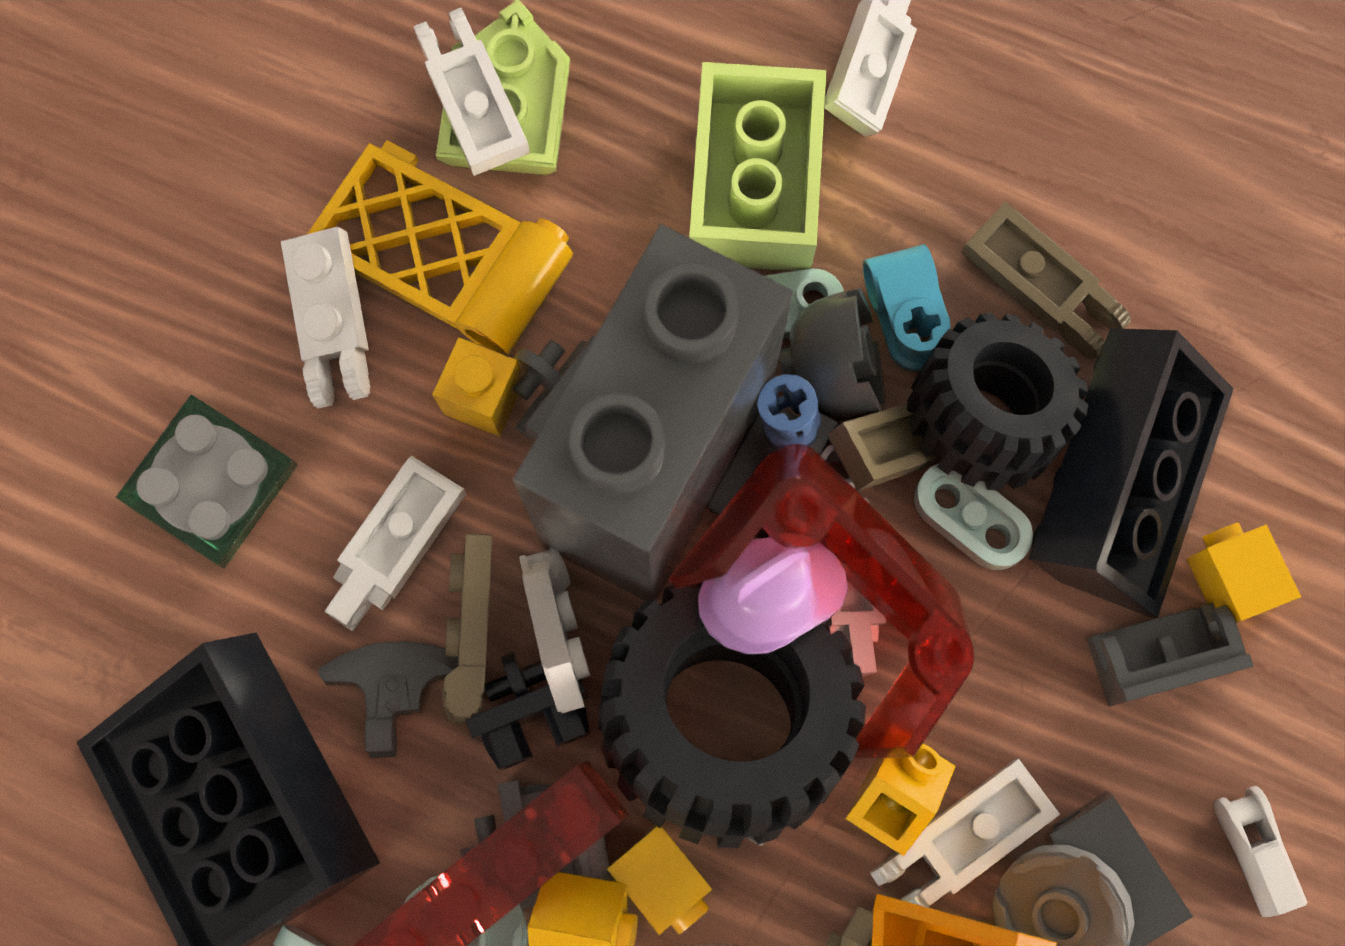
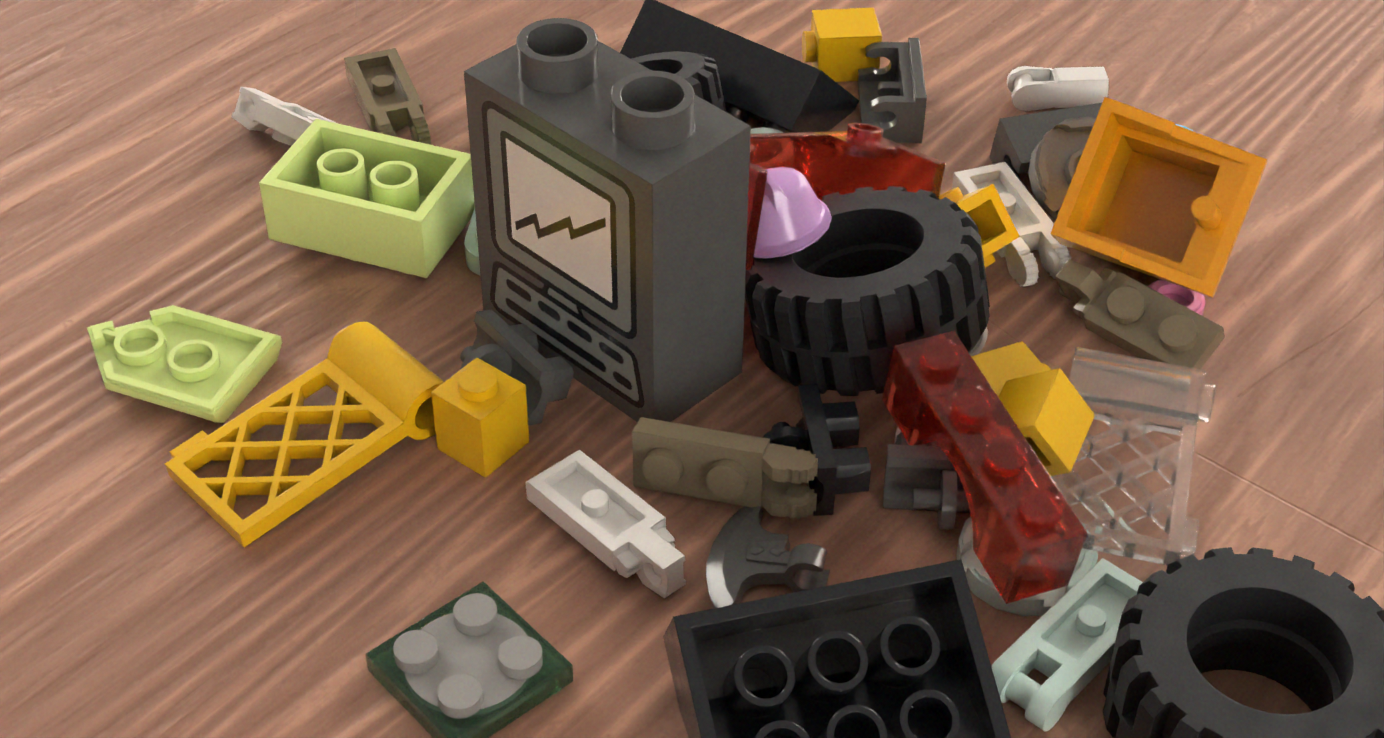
camera: 75 degrees left, 35 degrees down
(327, 313) = (337, 523): white hinge -> none
(473, 97) = (167, 358): white hinge -> none
(552, 616) = (755, 386): white hinge -> none
(959, 114) = (387, 94): none -> dark tan hinge

